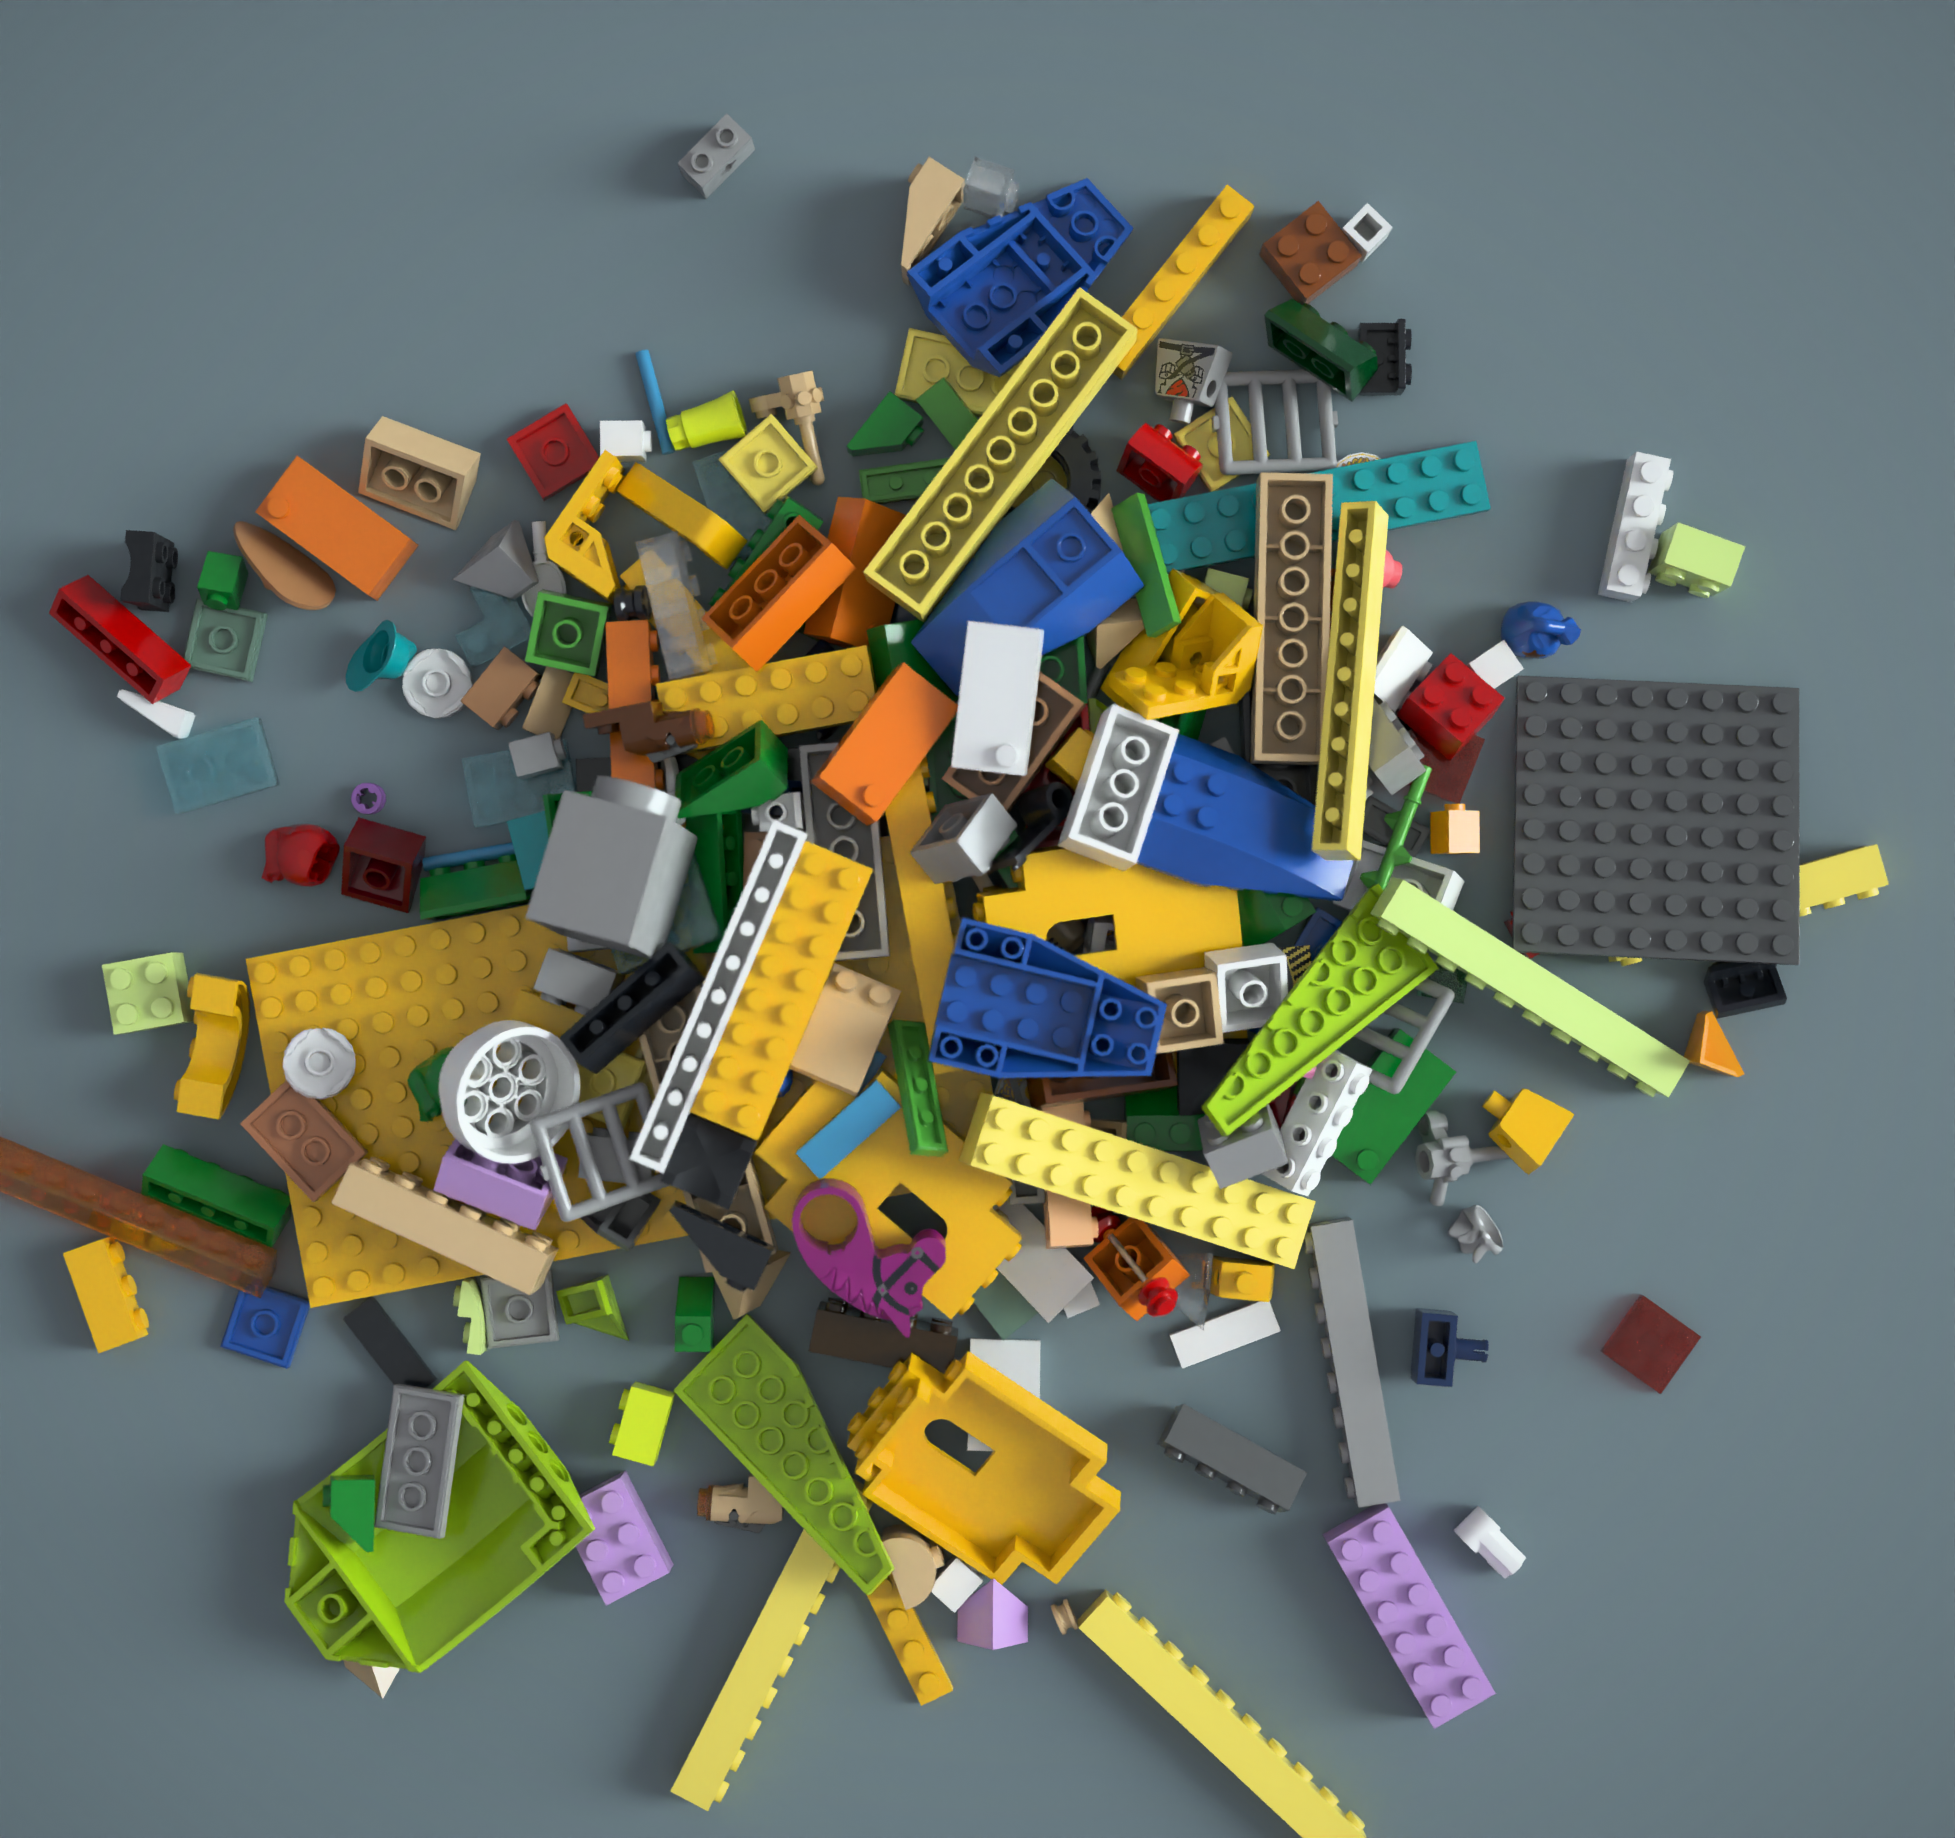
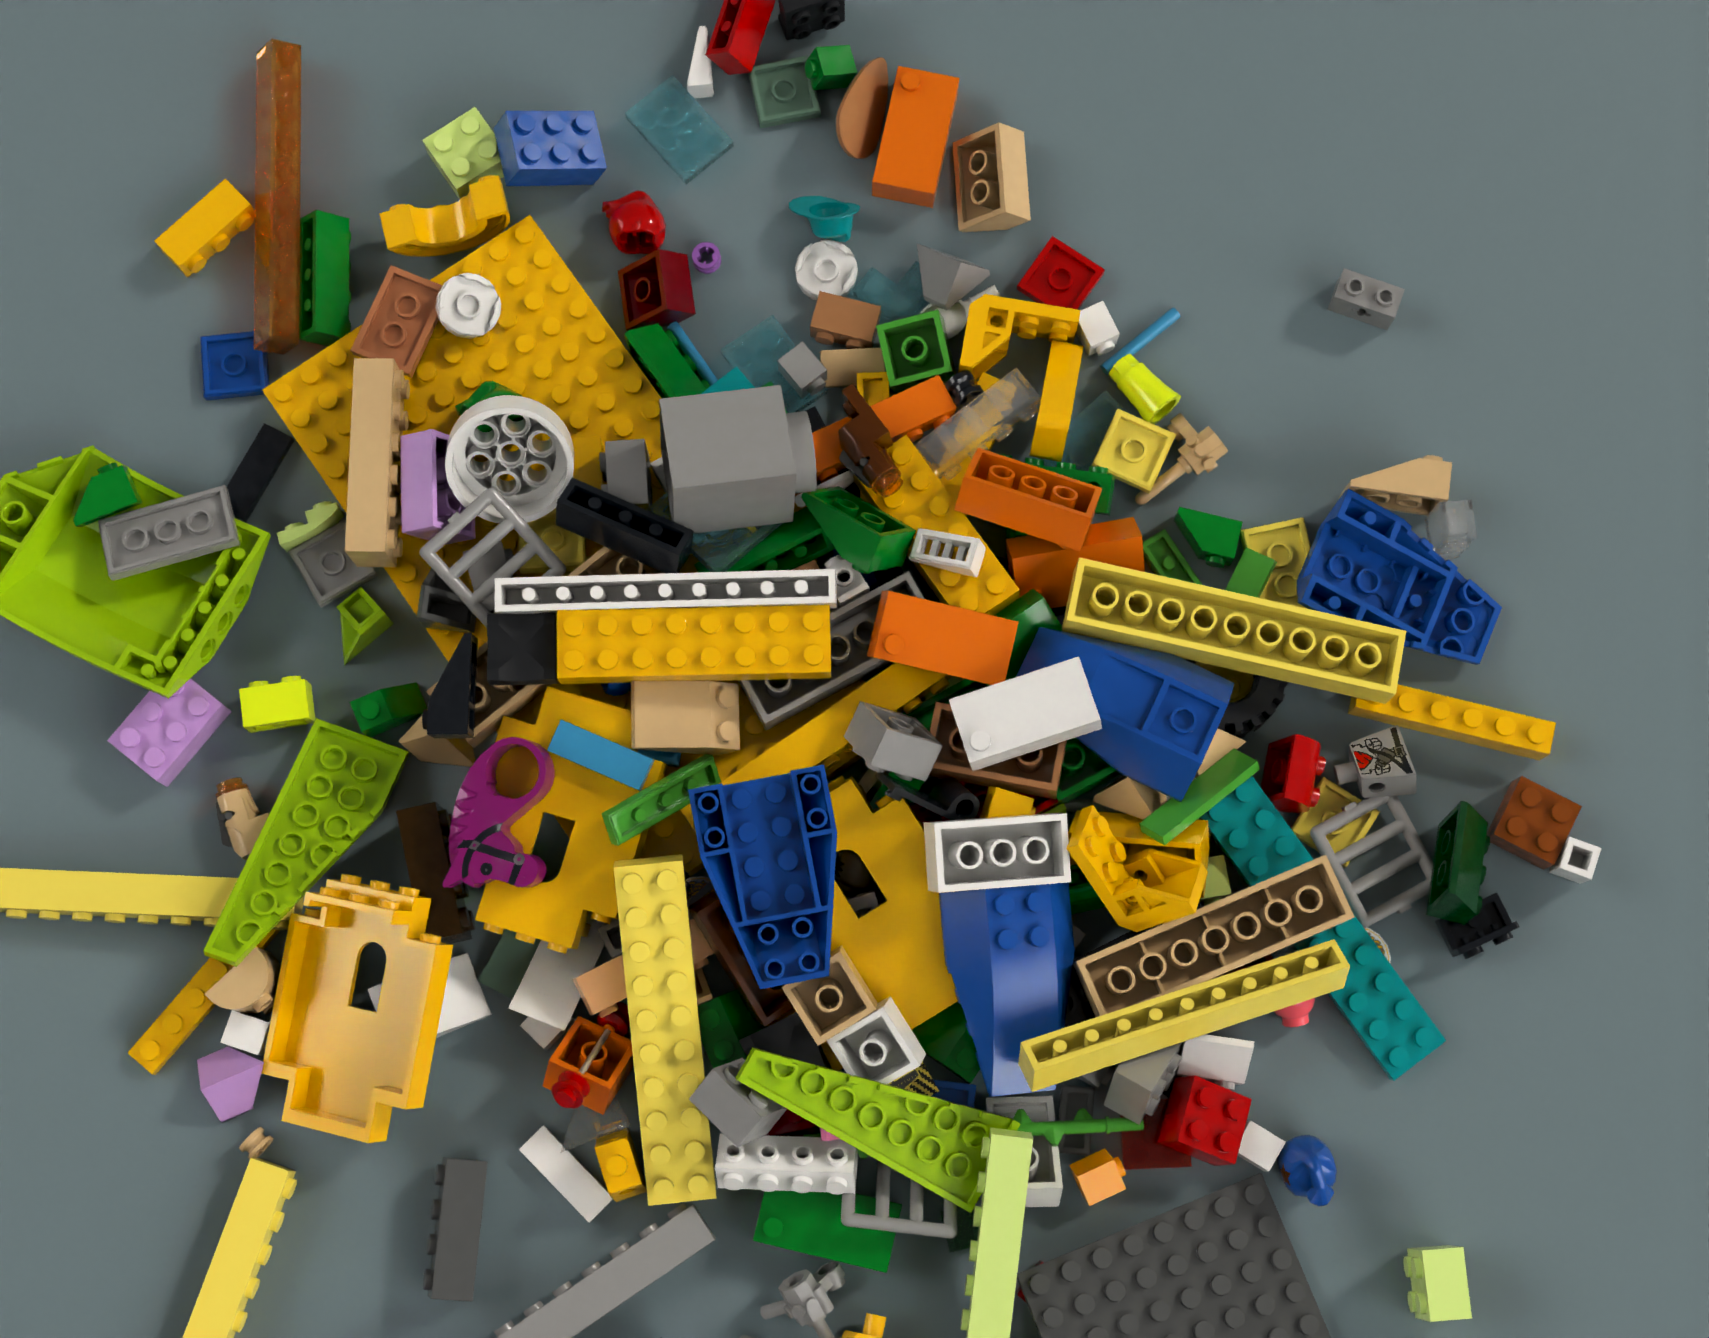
camera: 65 degrees right, 10 degrees down
(182, 907) = (549, 148): none -> blue brick
(815, 674) = (958, 565): none -> white slope
(1634, 527) = (1441, 1215): white brick -> none

